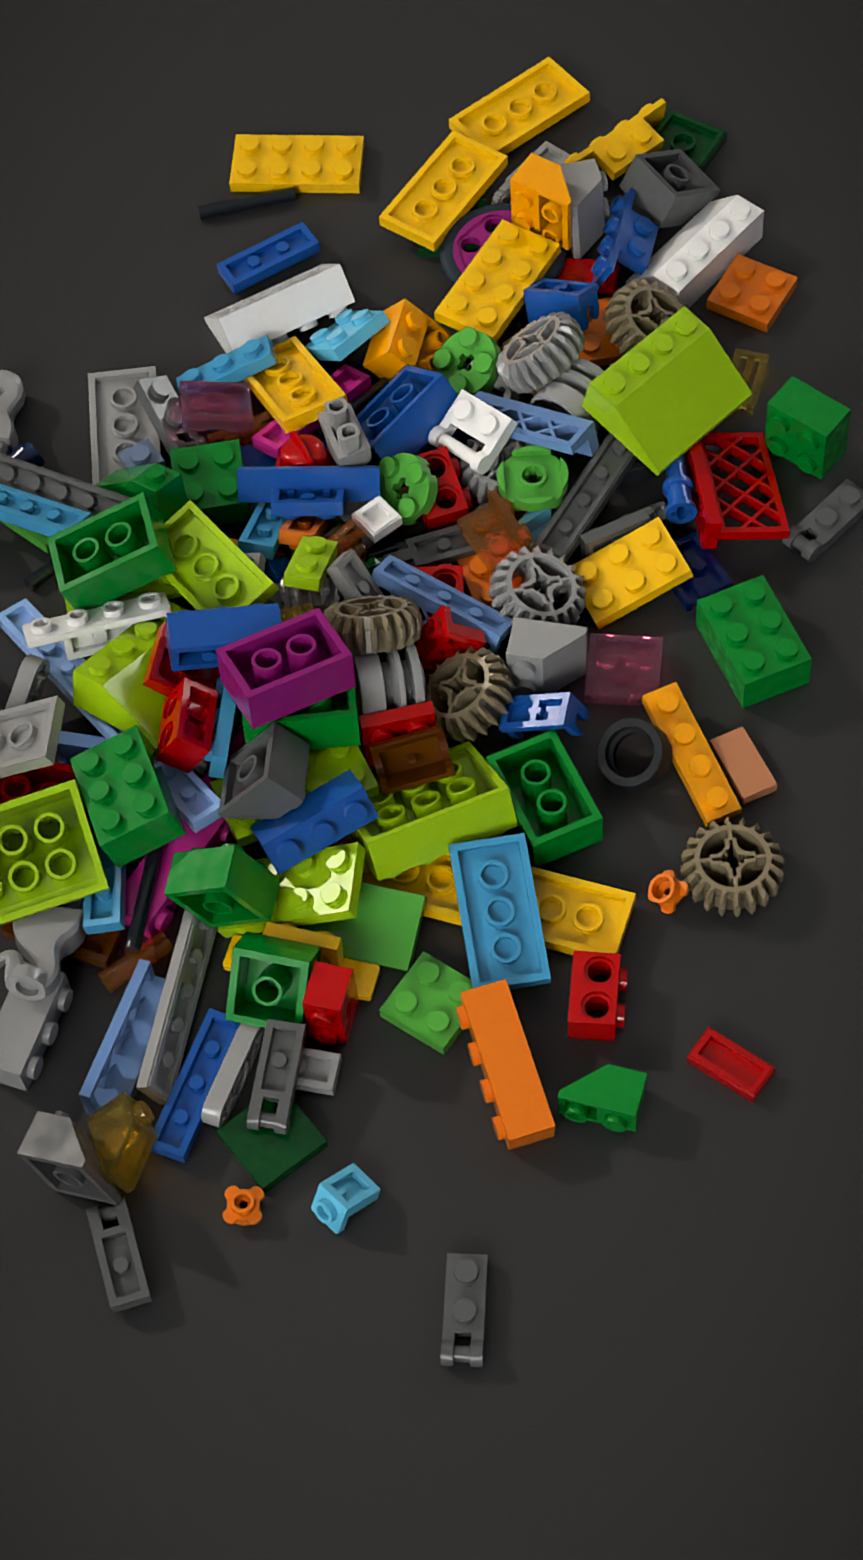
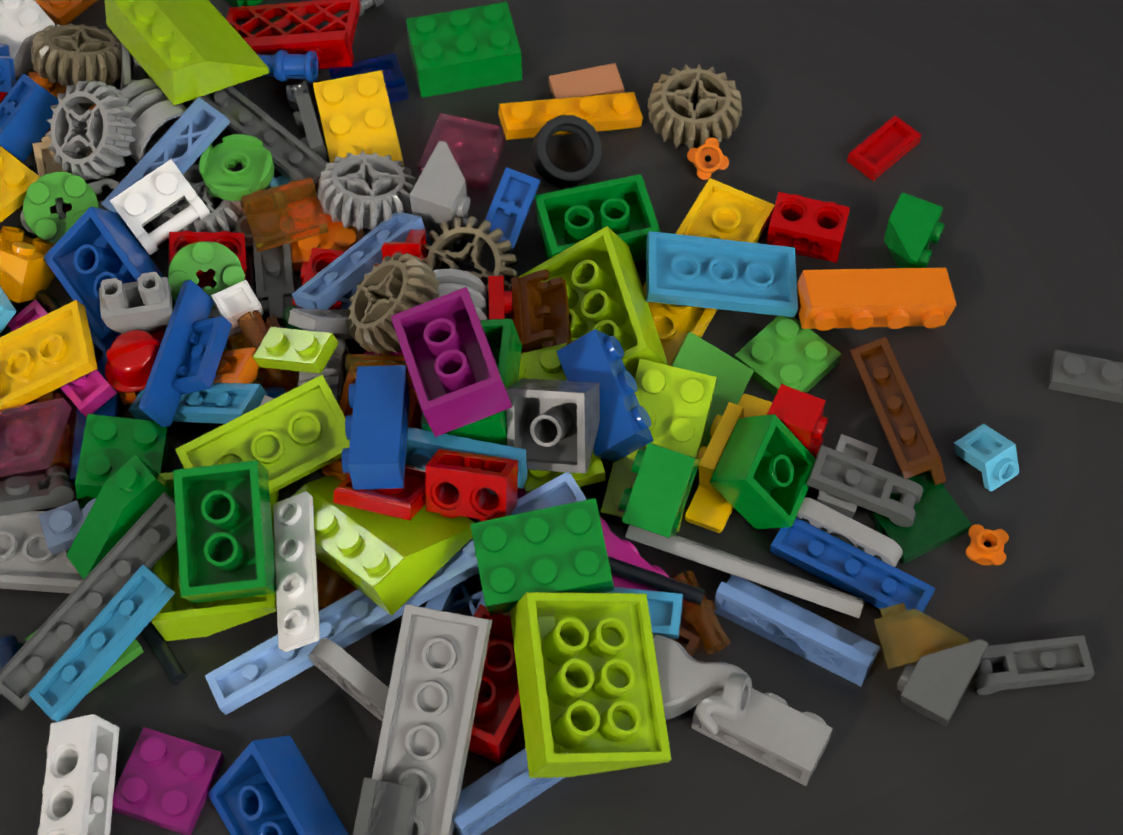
camera: 85 degrees left, 0 degrees up
(369, 1095) = (897, 410): none -> reddish brown fence

